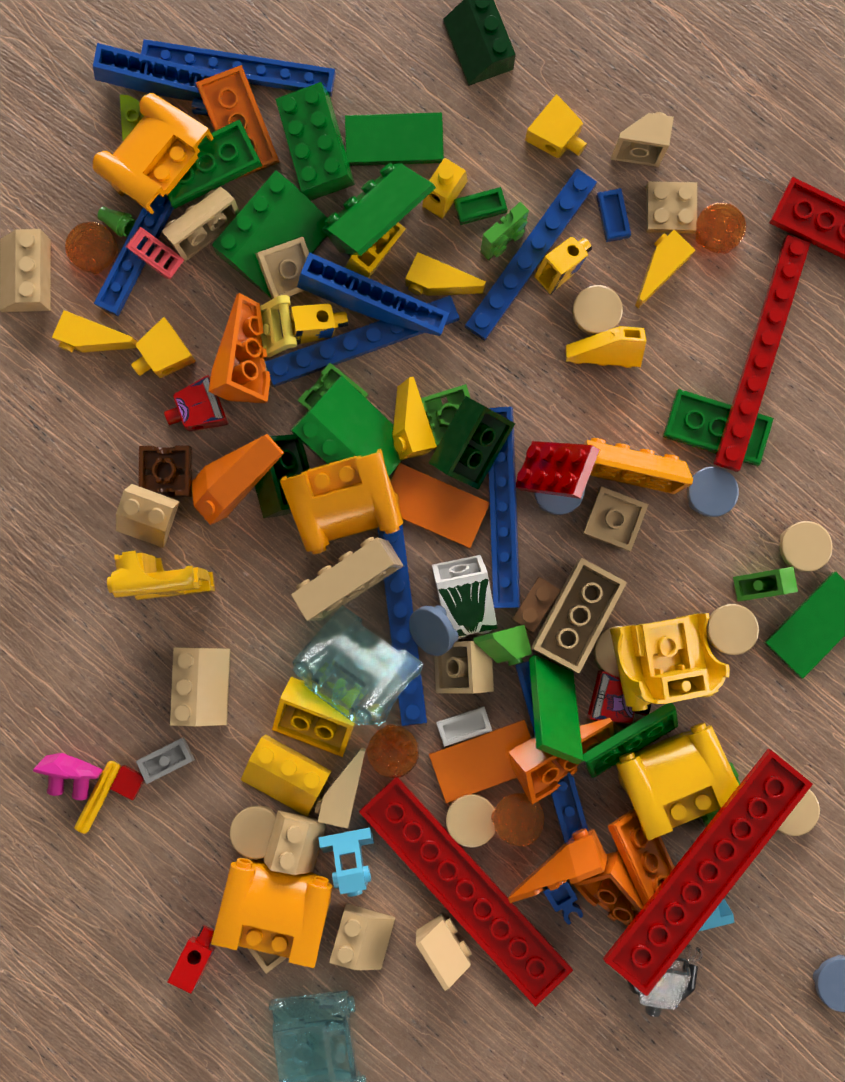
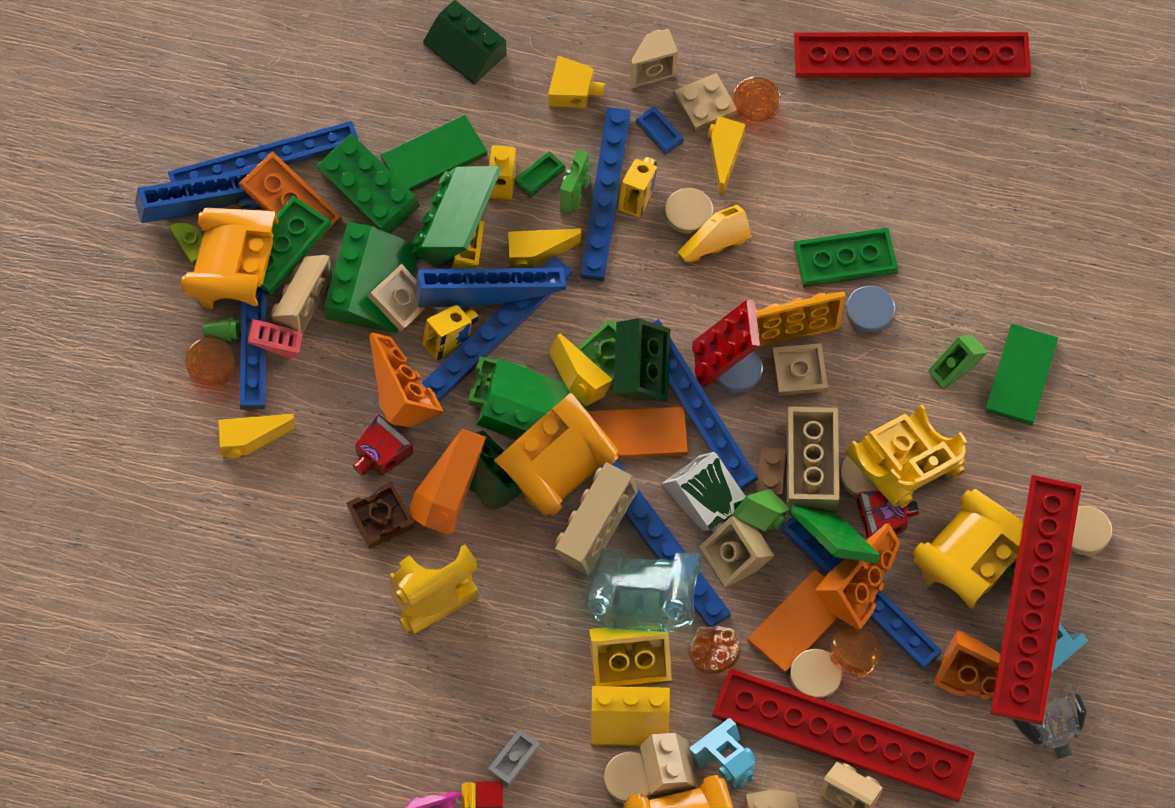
camera: 30 degrees left, 20 degrees down
(25, 271) = (159, 409): tan slope -> none
(146, 515) = (382, 553): tan slope -> none
(162, 351) = (324, 416): yellow torso -> none
(200, 686) = (510, 679): tan slope -> none
(272, 336) = (416, 358): light yellow plate -> none
(339, 799) = (690, 714): tan slope -> none
(432, 630) = (693, 527): sand blue tile -> none
(464, 726) = (764, 602): white tile -> none
(563, 899) = (929, 698): blue plate -> none
(575, 860) = (921, 652): orange wedge -> none
(631, 739) = (918, 527): green tile -> none
(644, 858) = (977, 624): orange tile -> none
(732, 629) = (951, 410): tan tile -> none
(762, 353) = (849, 181): red plate -> none
(805, 546) = (974, 315): tan tile -> none

